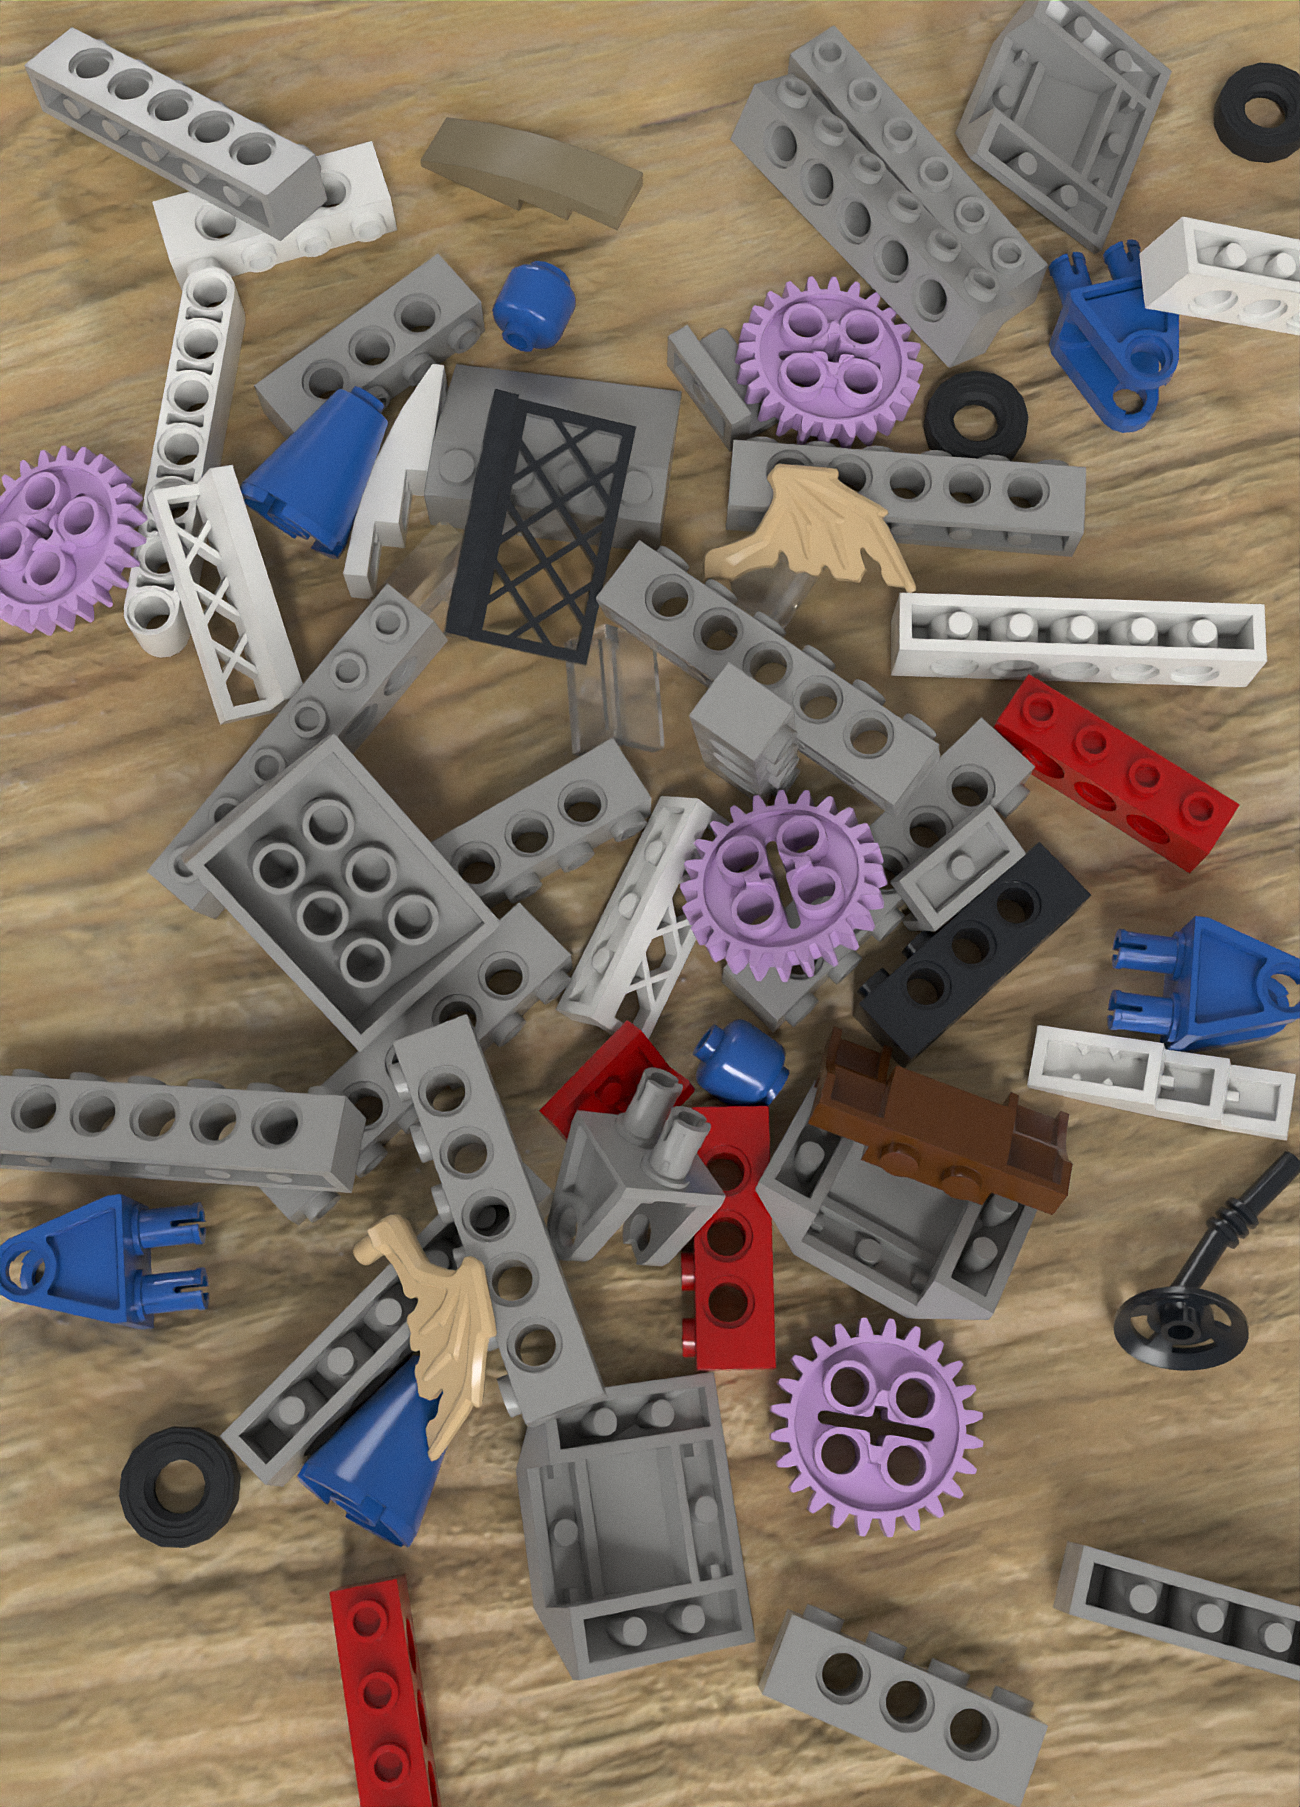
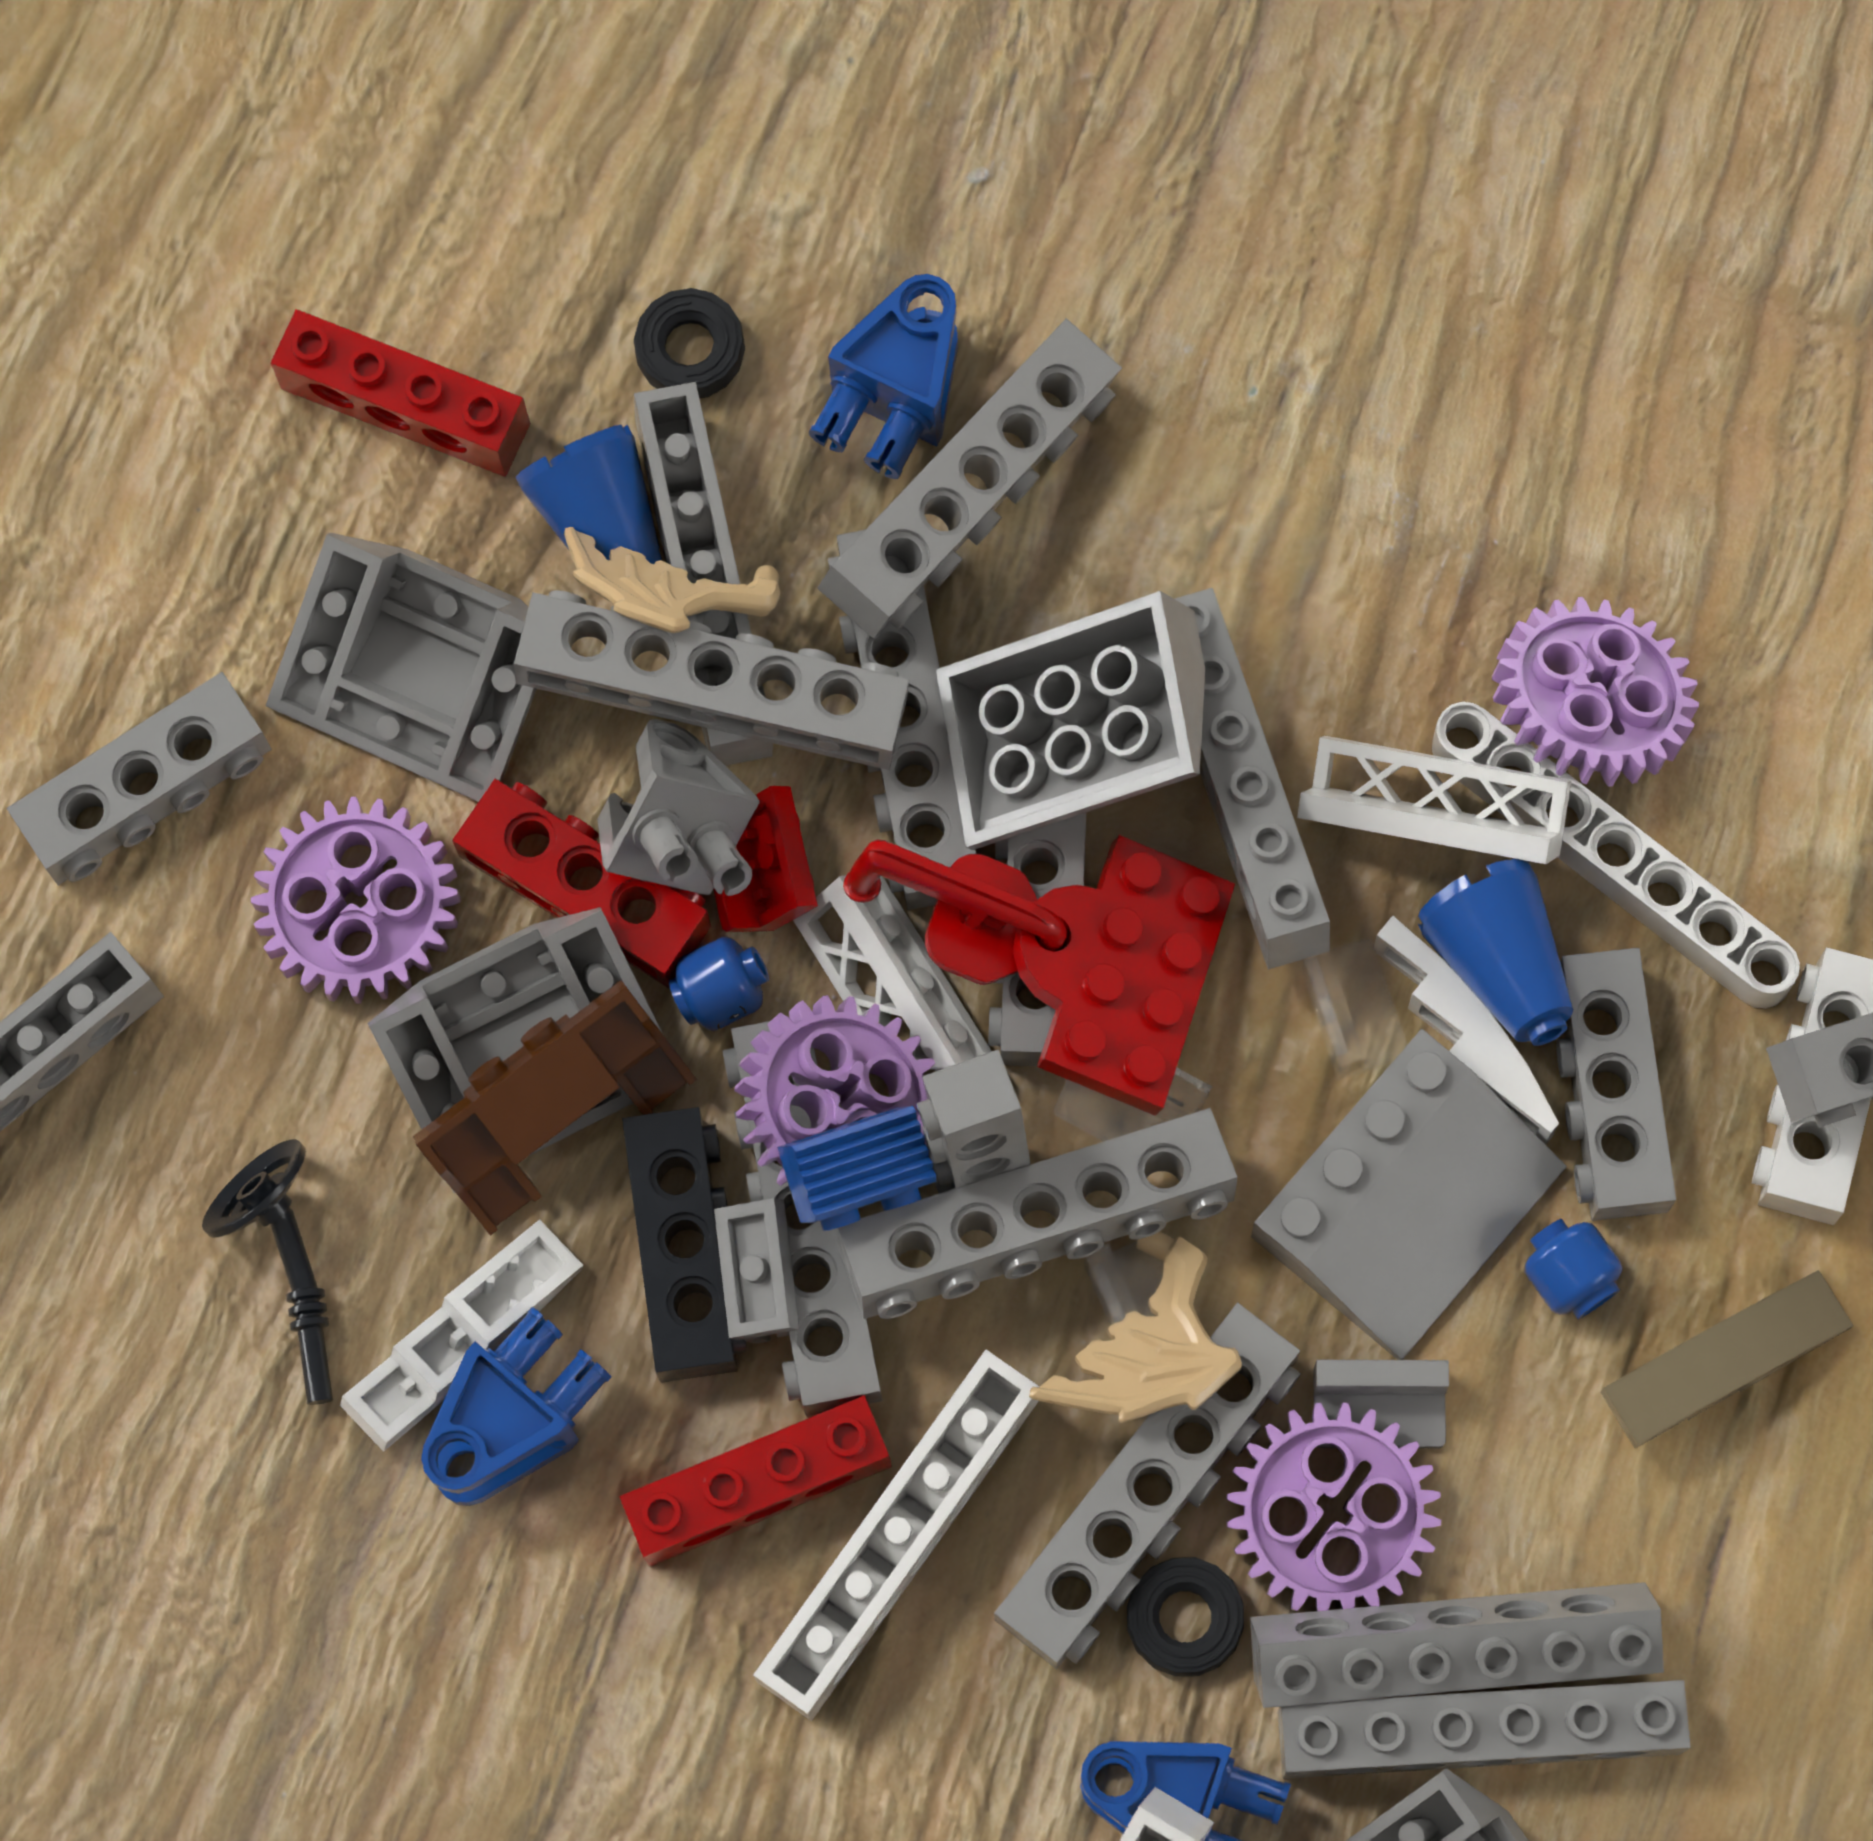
camera: 130 degrees right, 0 degrees up
(487, 517) = (1351, 1059): black fence -> none
(510, 749) = (1126, 961): none -> red plate
(838, 813) = (856, 1166): none -> blue brick

